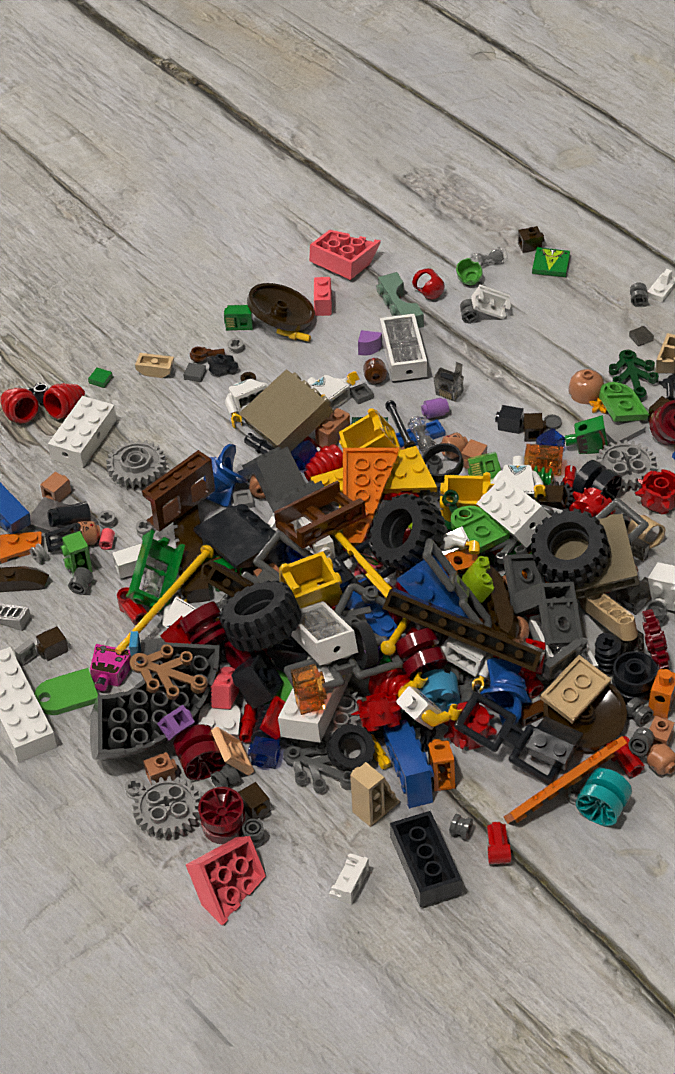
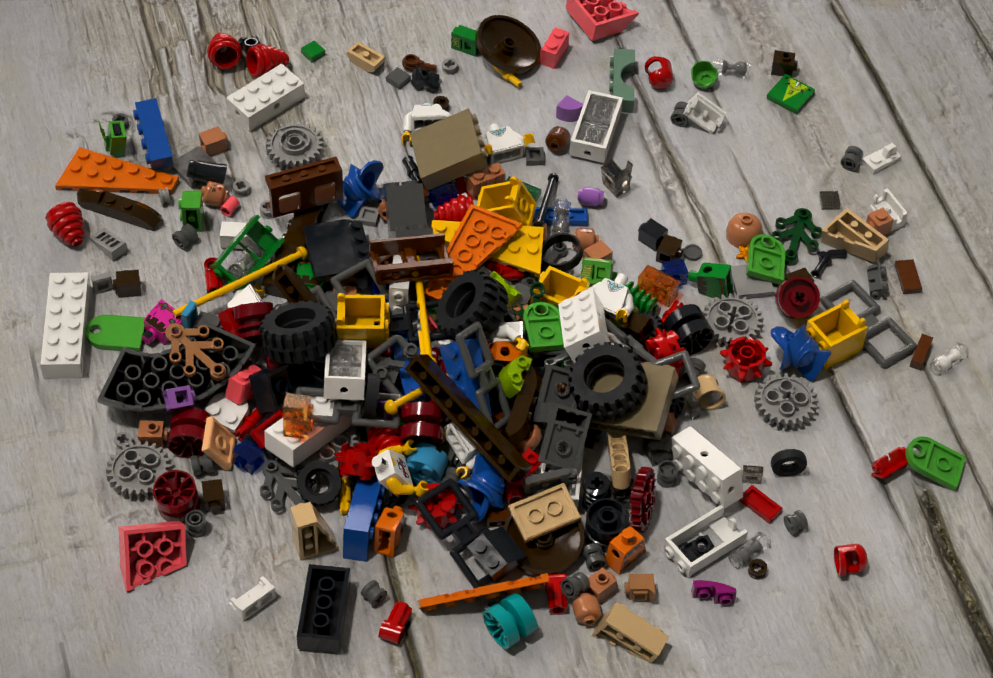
camera: 20 degrees right, 5 degrees up
(75, 526) = (191, 183): black tile -> none

